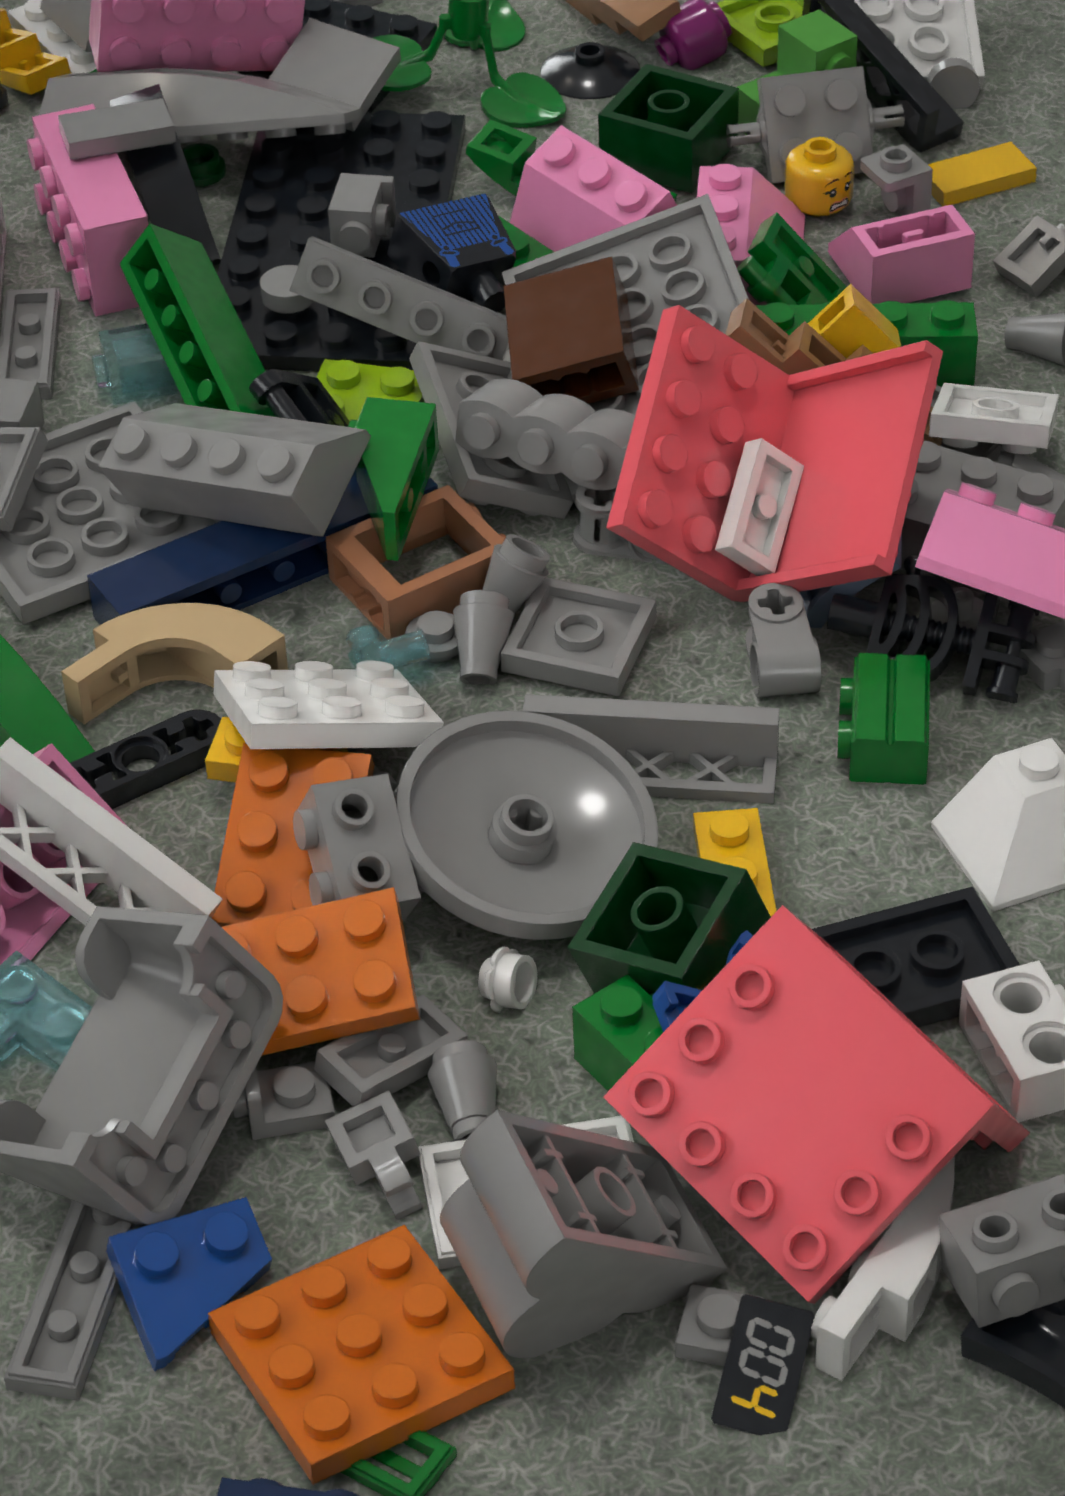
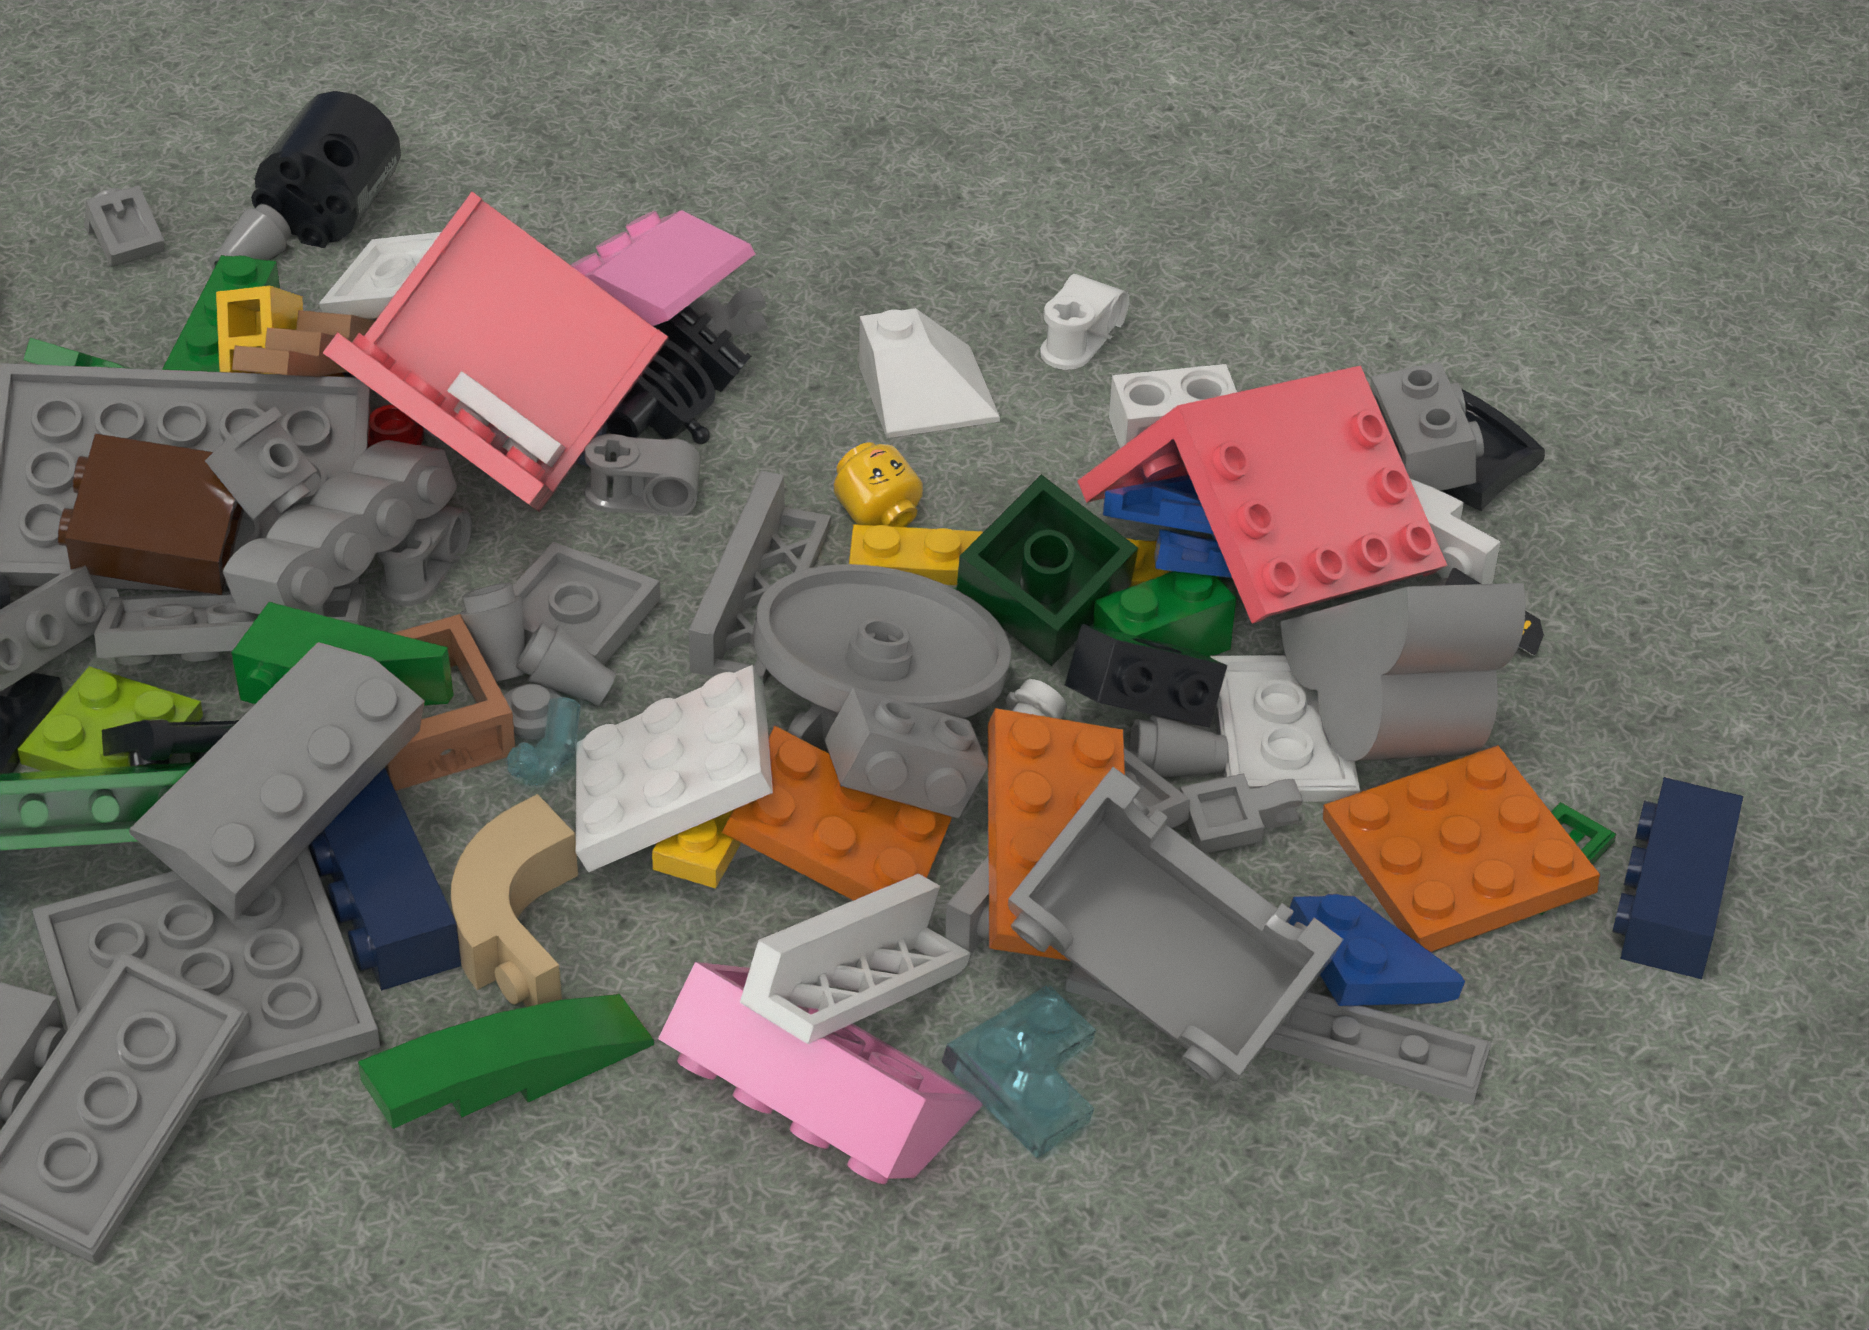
camera: 85 degrees left, 0 degrees up
(150, 744) = (656, 928): black beam -> none
(525, 1030) = (1145, 675): none -> black brick
(612, 376) = (262, 466): none -> light grey brick
(812, 813) = (878, 486): none -> yellow head
(888, 720) = (766, 425): green brick -> none
(907, 256) = (78, 297): bright pink slope -> none
(923, 951) = (1063, 446): black plate -> none

